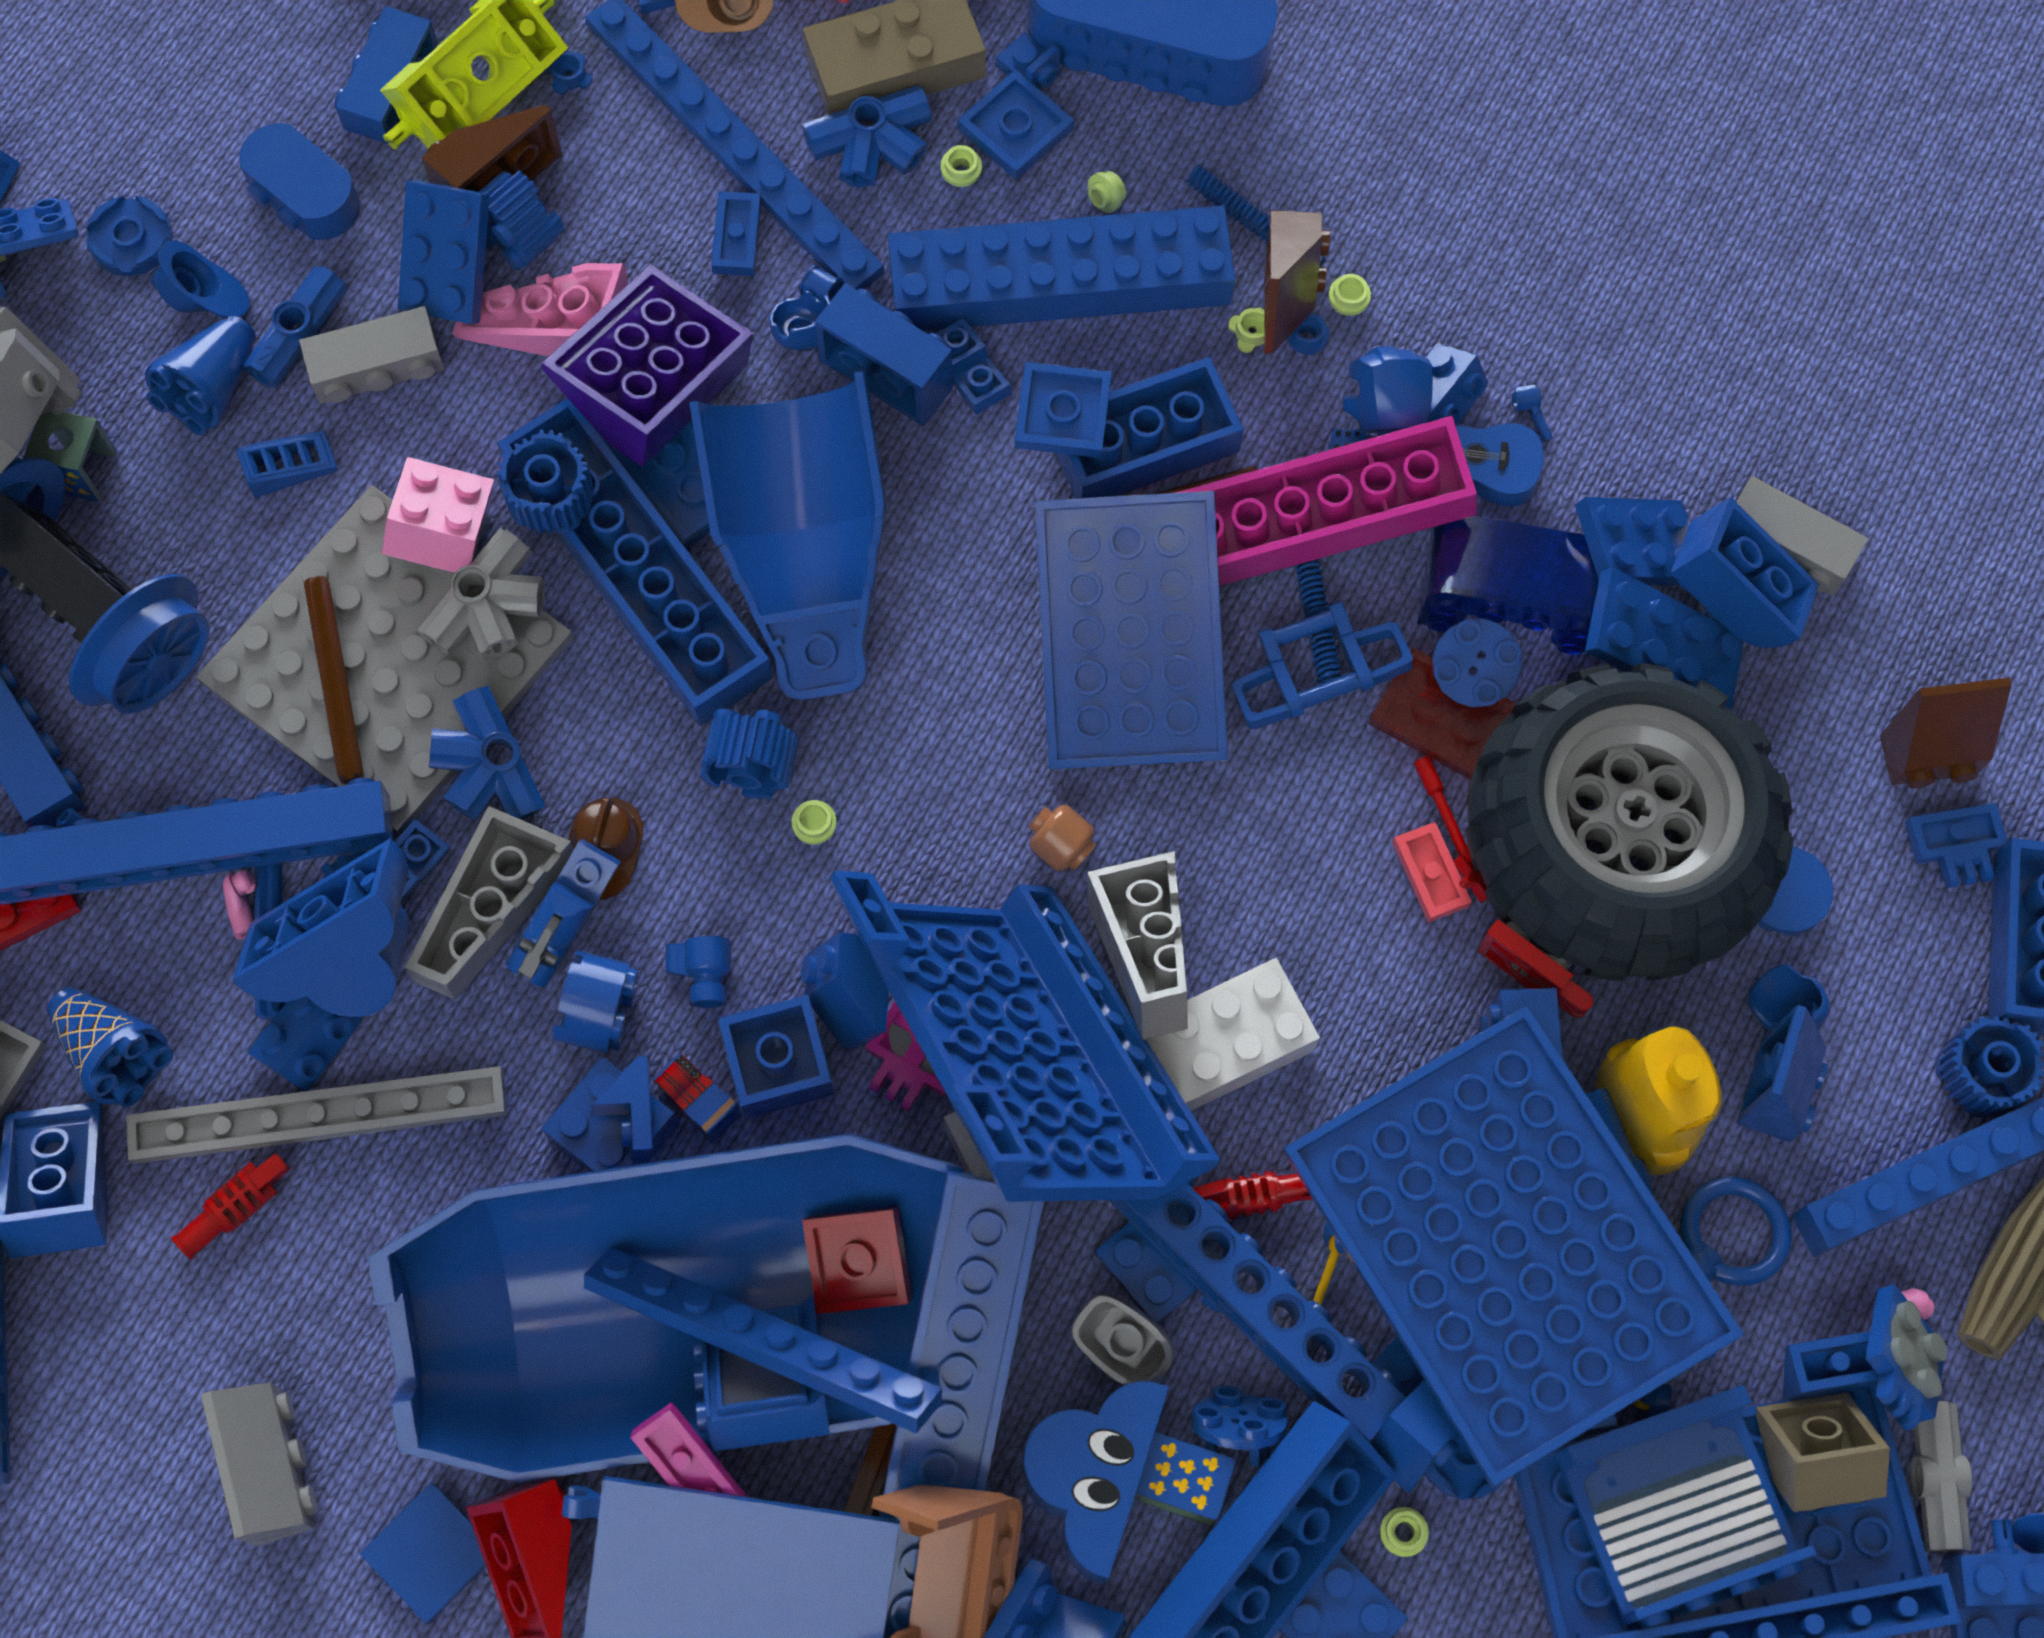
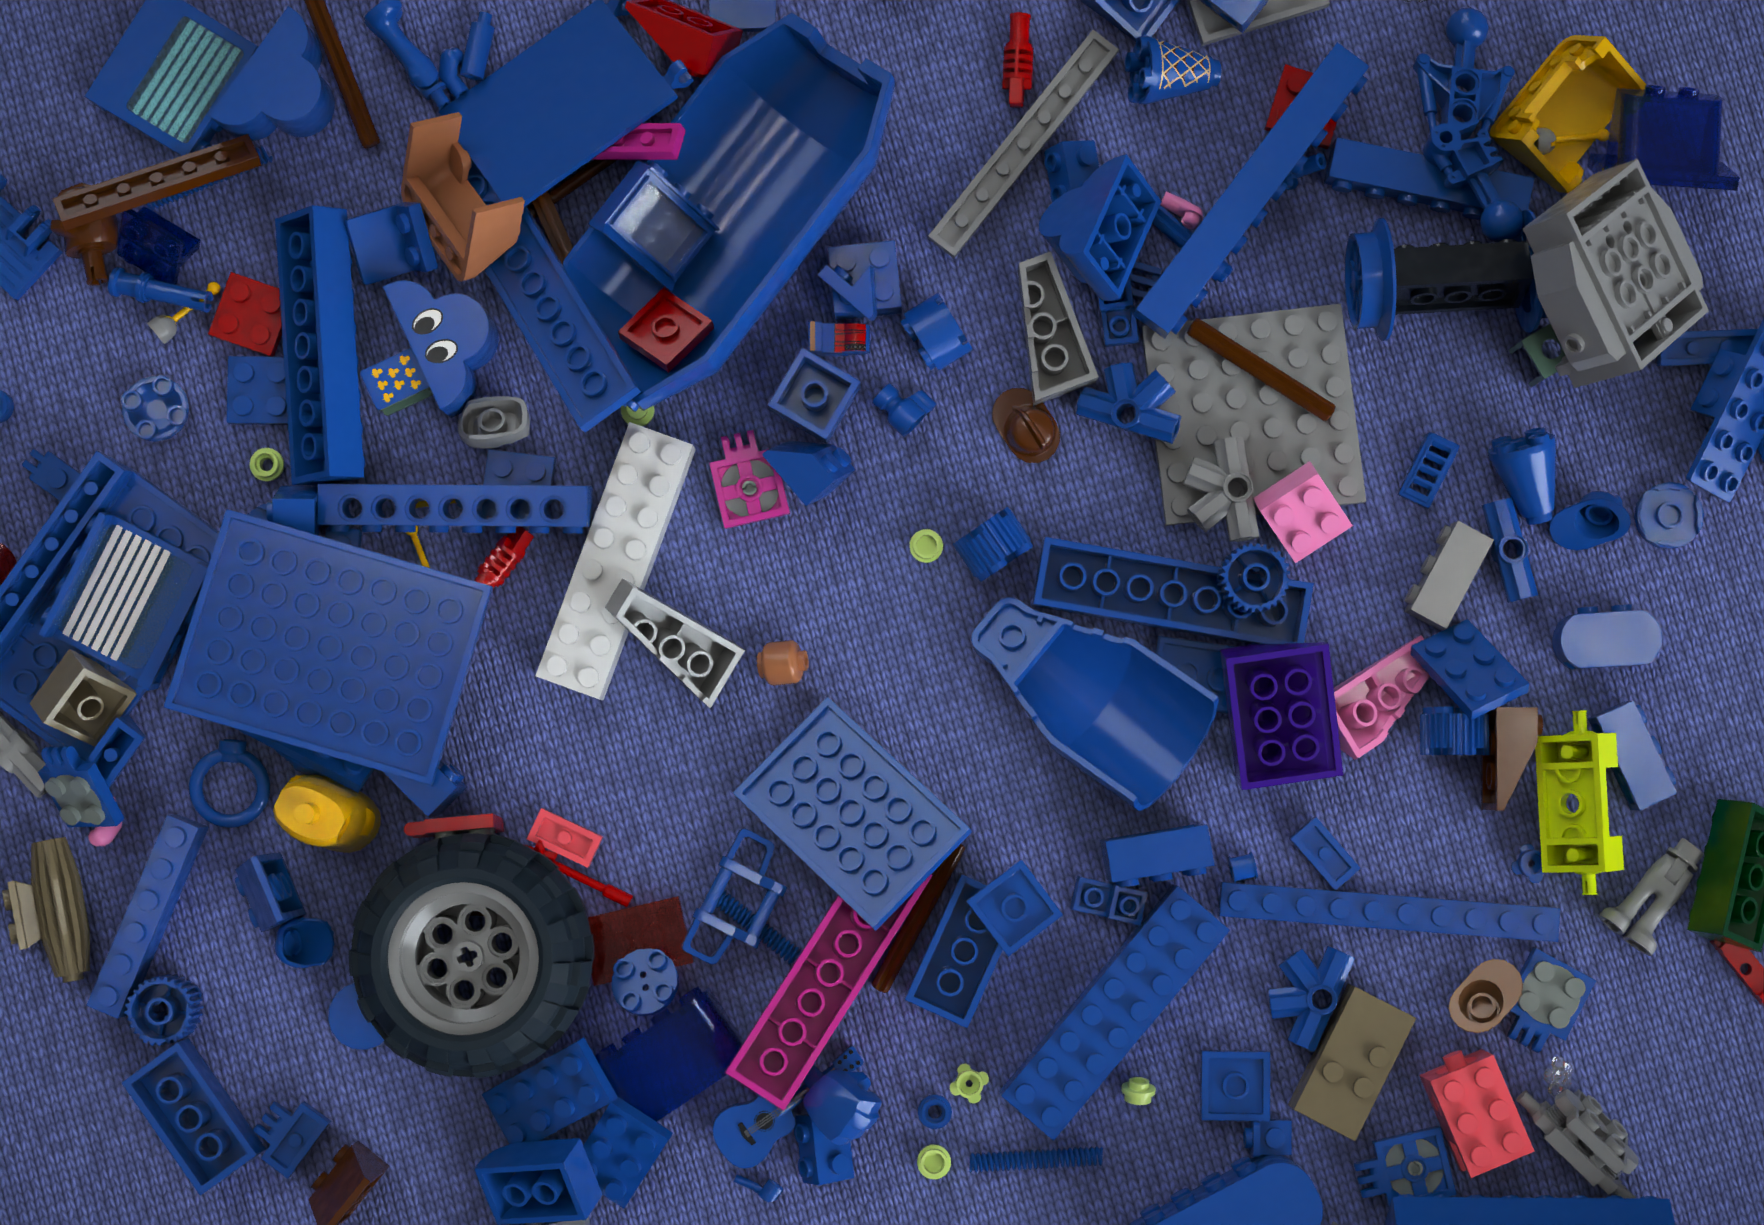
camera: 140 degrees right, 15 degrees up
(563, 913) = (1003, 363): blue plate -> none
(764, 1339) = (665, 235): blue plate -> none
(794, 321) = (1230, 831): blue hair -> none
(961, 156) = (1240, 1037): yellowish green plate -> none
(1031, 1045) = (675, 511): blue slope -> none
(1240, 1422) = (396, 447): blue plate -> none
(1292, 272) = (971, 1133): slope -> none

